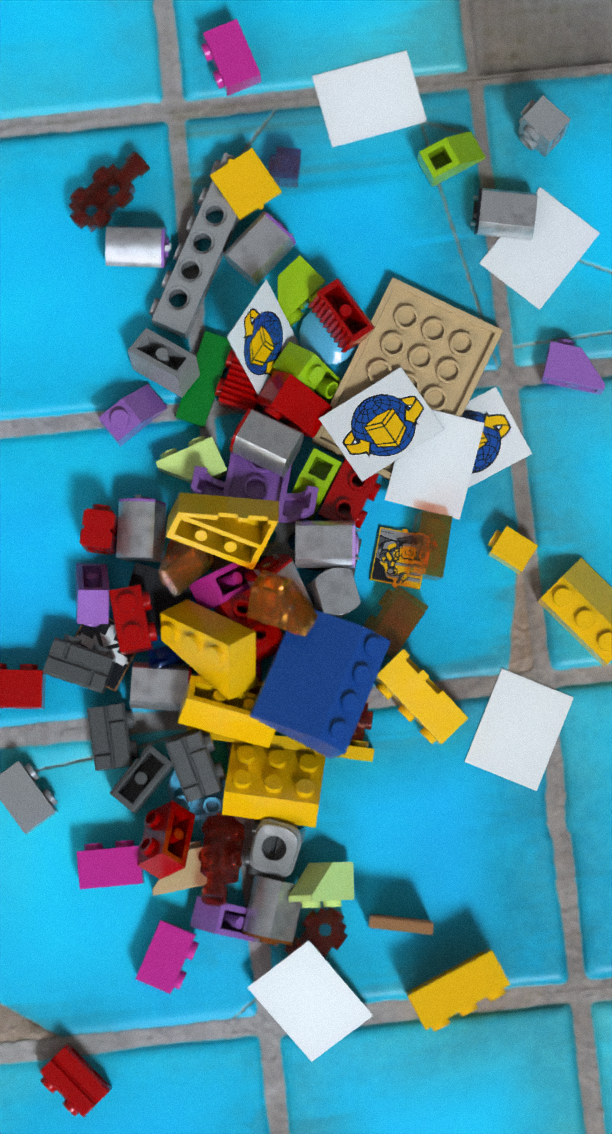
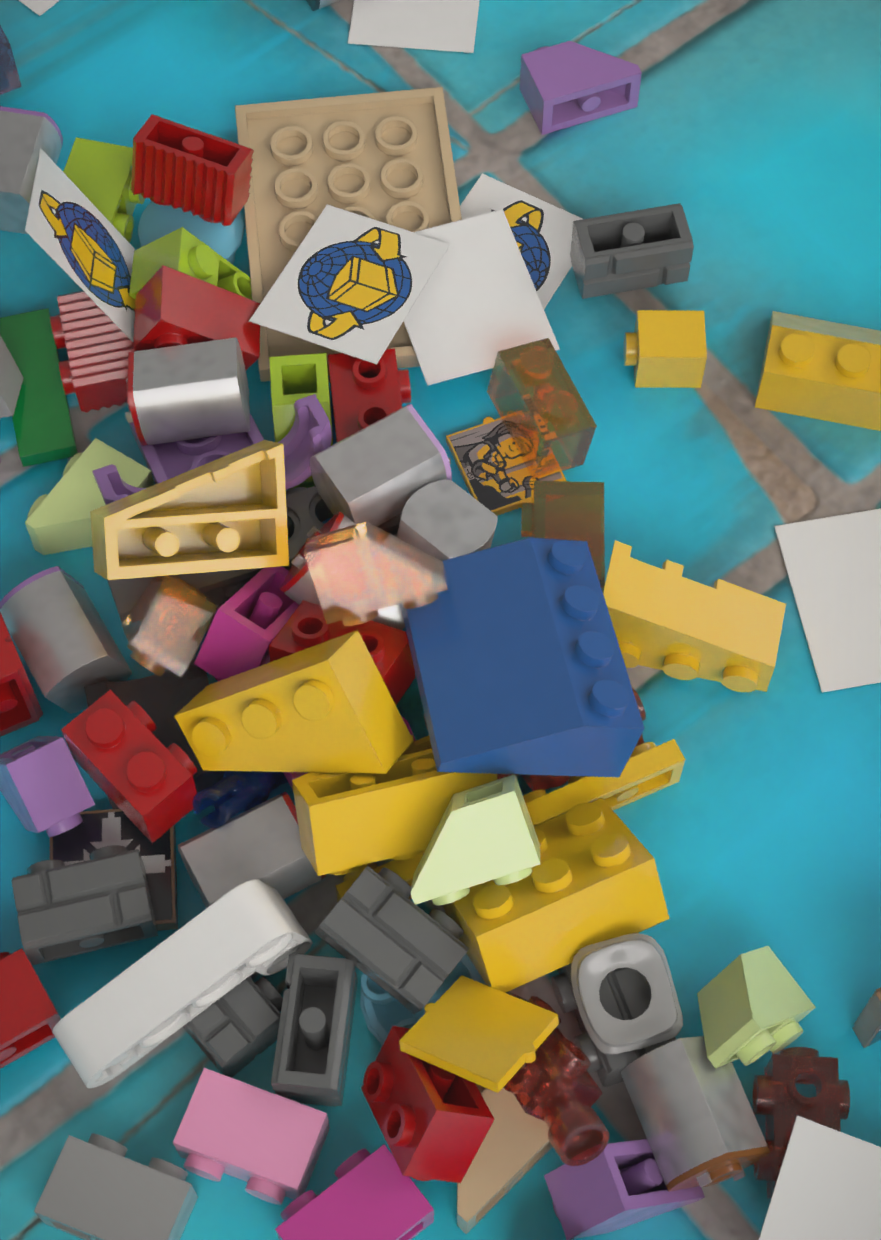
camera: 35 degrees left, 20 degrees down
(91, 804) = (250, 1137): none -> bright pink brick
(99, 727) = (180, 979): none -> white beam
(202, 828) = (479, 1033): none -> yellow piece
(250, 752) = (478, 840): none -> yellowish green slope
(529, 488) = (631, 250): none -> dark grey brick

